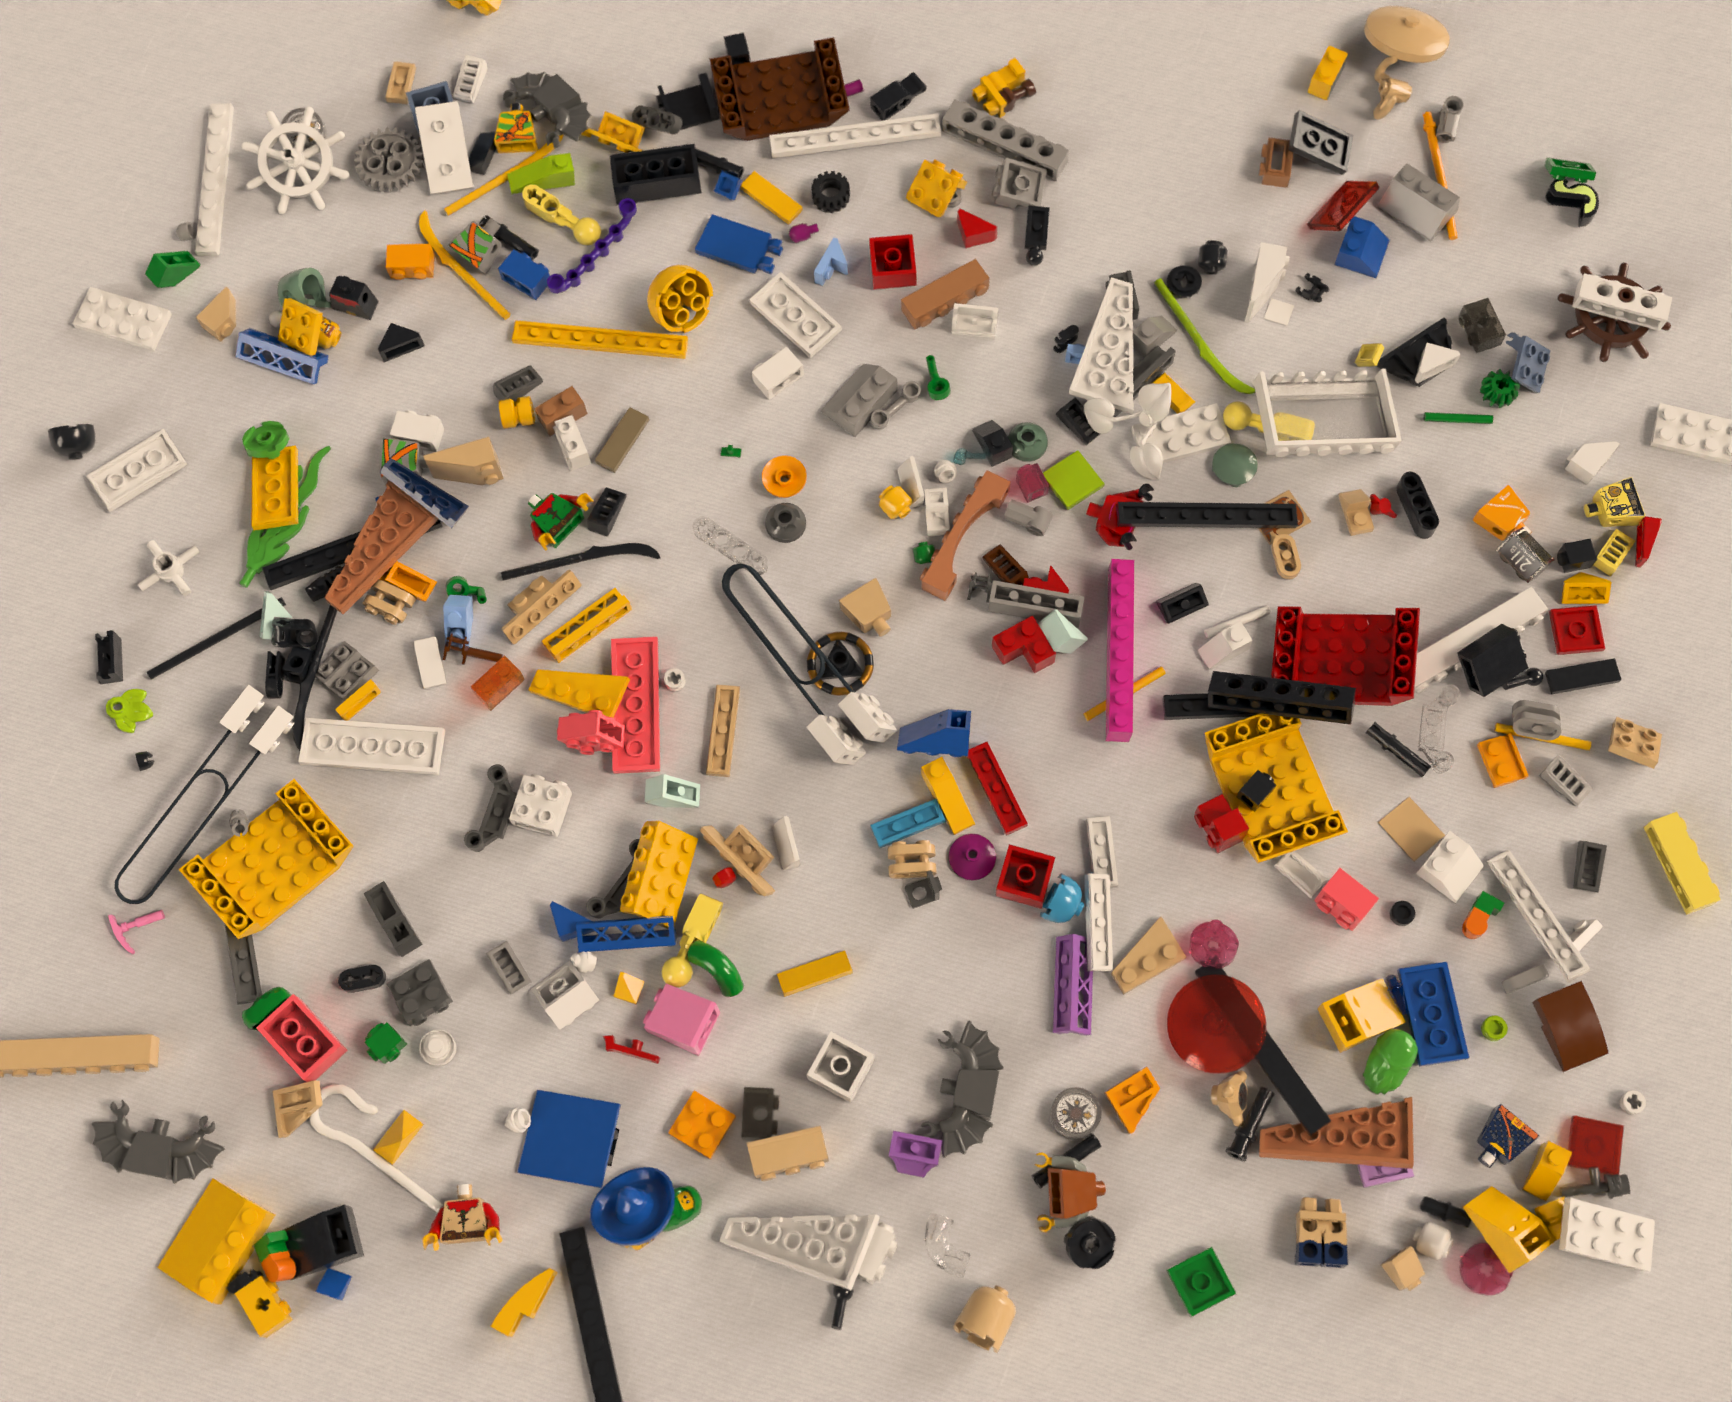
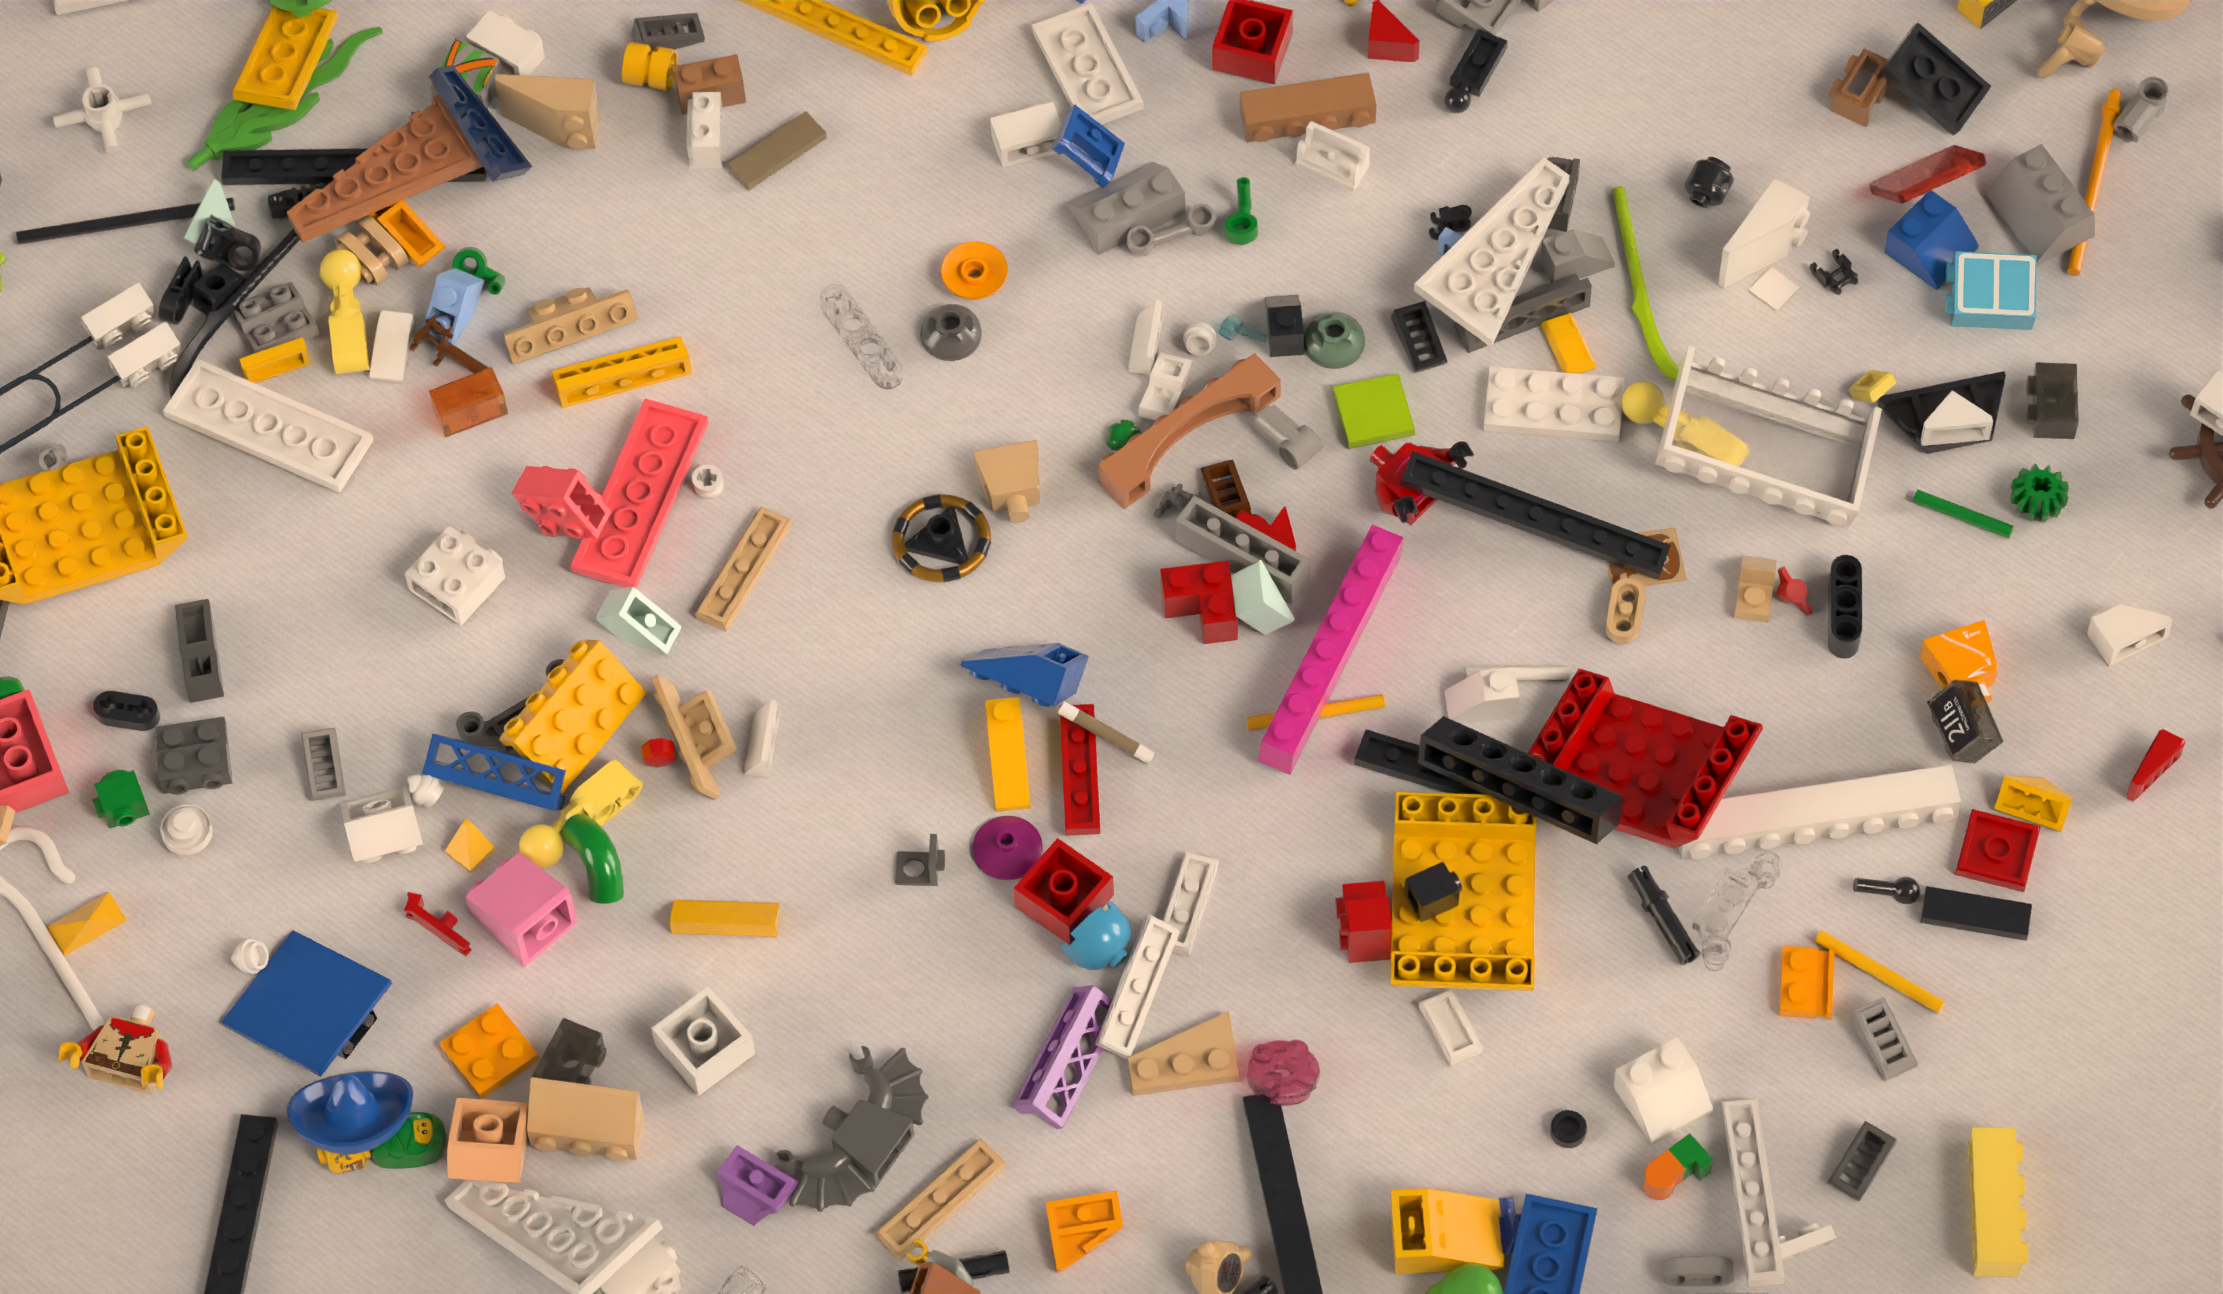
camera: 20 degrees right, 10 degrees down
(376, 624) = (347, 328): none -> light yellow beam
(497, 813) = (388, 573): dark grey plate -> none
(524, 1302) = (158, 1180): yellow slope -> none
(556, 517) = (642, 218): torso -> none
(566, 922) = (419, 733): blue slope -> none
(581, 690) = (572, 445): yellow wing -> none
(593, 553) = (672, 283): black piece -> none
(601, 524) = (698, 249): black slope -> none
(730, 451) = (918, 216): green piece -> none
(732, 1192) = (487, 1140): none -> light nougat brick
(823, 363) = (1094, 140): none -> blue plate
(829, 731) = (937, 602): piece -> none
(895, 502) = (1111, 354): yellow head -> none
(901, 851) = (918, 817): tan brick -> none
(907, 823) = (937, 771): dark azure plate -> none
(1004, 758) = (1106, 732): none -> dark tan bar
(1032, 482) = (1313, 393): clear pink brick -> none
(1035, 1113) = (940, 1199): none -> tan tile
(1075, 1113) = (993, 1214): clear piece -> none
(1156, 403) = (1517, 330): white plant -> none
(1182, 602) = (1452, 623): black slope -> none
(1193, 279) = (1650, 191): black gear -> none
(1216, 1024) = (1238, 1172): clear red dish -> none
(1235, 464) = (1612, 467): sand green dish -> none
(1345, 900) = (1490, 1075): coral brick -> none
(1411, 829) = (1633, 1023): tan sticker -> none
(1414, 267) = (1992, 290): none -> medium azure brick
(1493, 660) = (1849, 840): black brick -> none
(1530, 362) = (2094, 471): sand blue plate -> none
(1536, 720) = (1875, 942): light grey brick -> none
(1576, 555) = (2041, 750): black brick -> none
(1607, 566) = (2087, 785): light yellow slope -> none
(1616, 505) = (2132, 702): torso -> none
(1635, 742) = (2004, 1021): tan plate -> none

